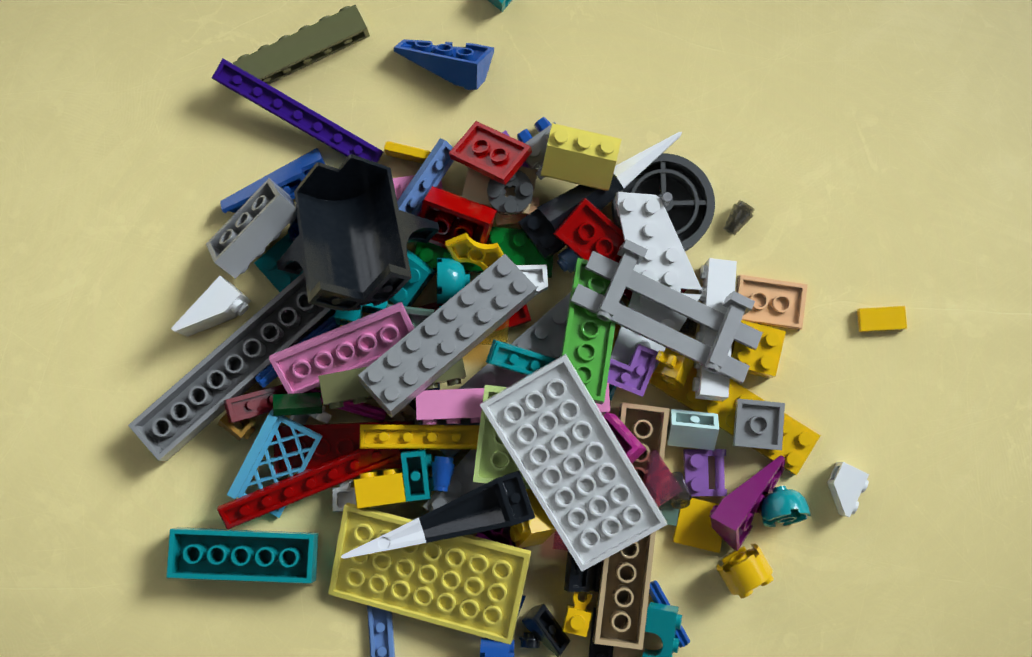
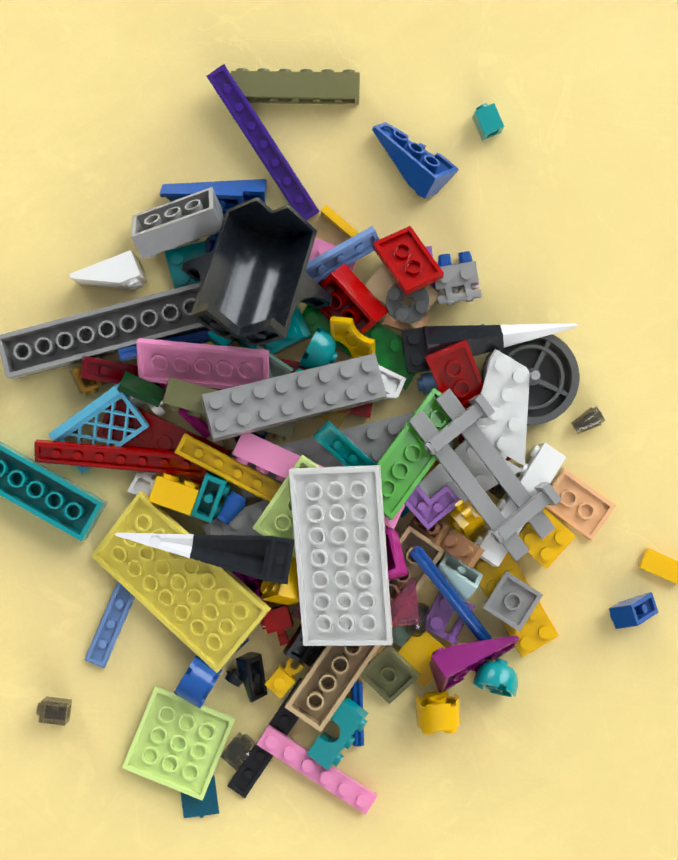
camera: 25 degrees right, 5 degrees up
(543, 561) = (278, 620): none -> red brick
(580, 157) = (480, 304): light yellow slope -> none
(670, 396) = (450, 541): none -> medium nougat slope
(678, 557) = (389, 674): none -> olive plate
(695, 448) = (449, 593): none -> blue axle
(846, 486) = (558, 687): white slope -> none
(877, 375) = (633, 611): none -> blue slope

